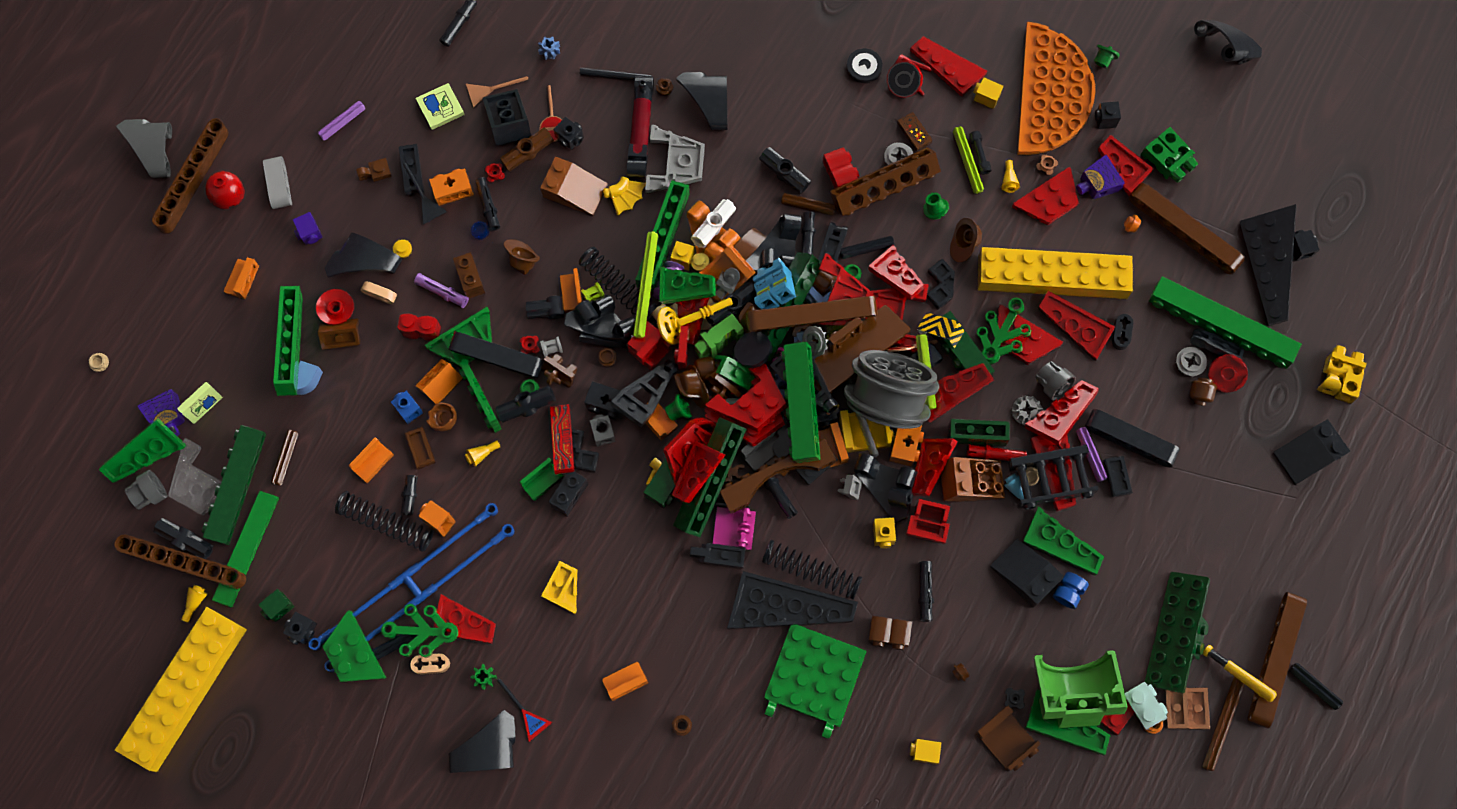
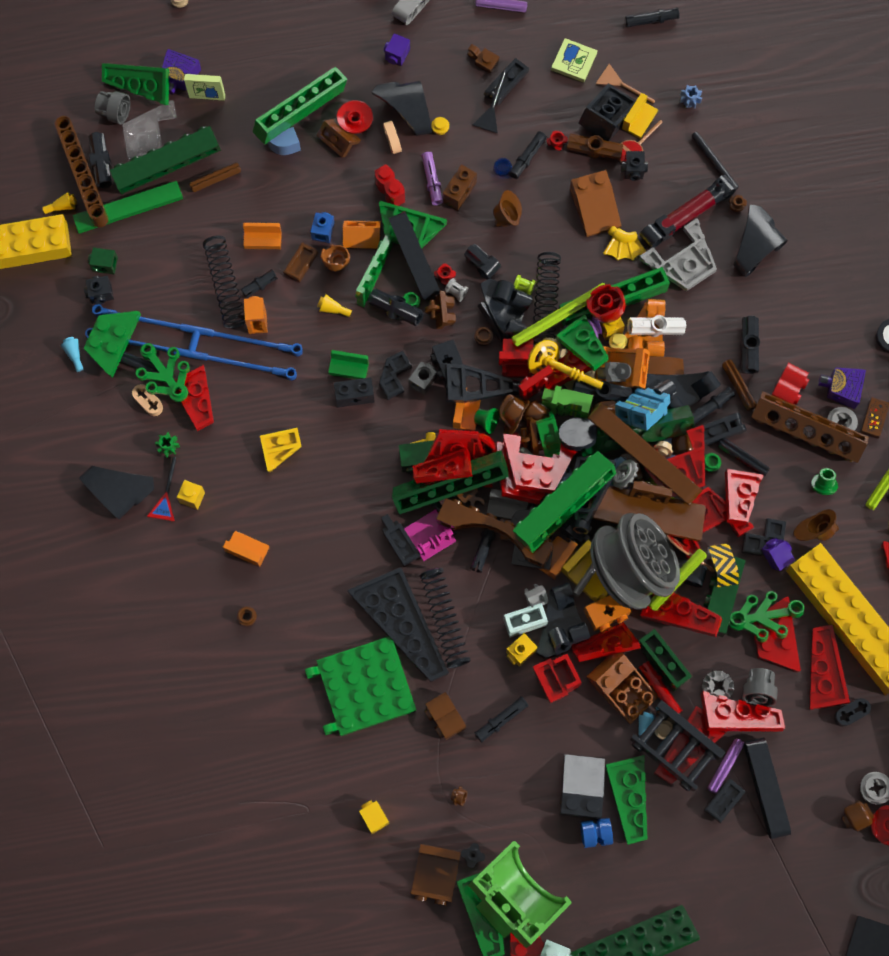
camera: 50 degrees right, 0 degrees up
(241, 278) = (322, 38): orange panel -> none
(331, 692) = (71, 348): none -> medium azure cone
(446, 194) = (517, 119): orange brick -> none
(531, 98) = (639, 117): none -> yellow panel
(543, 691) = (190, 494): none -> yellow brick
(562, 439) = (390, 354): red tile -> none
(571, 290) = (514, 266): orange panel -> none
(669, 243) = (606, 303): none -> red cylinder
(817, 296) = (664, 448): none -> tan plate
(864, 509) = (525, 620): none -> light aqua brick
(873, 131) = (844, 386): none -> dark purple torso
(963, 284) = (778, 553): none -> dark purple brick

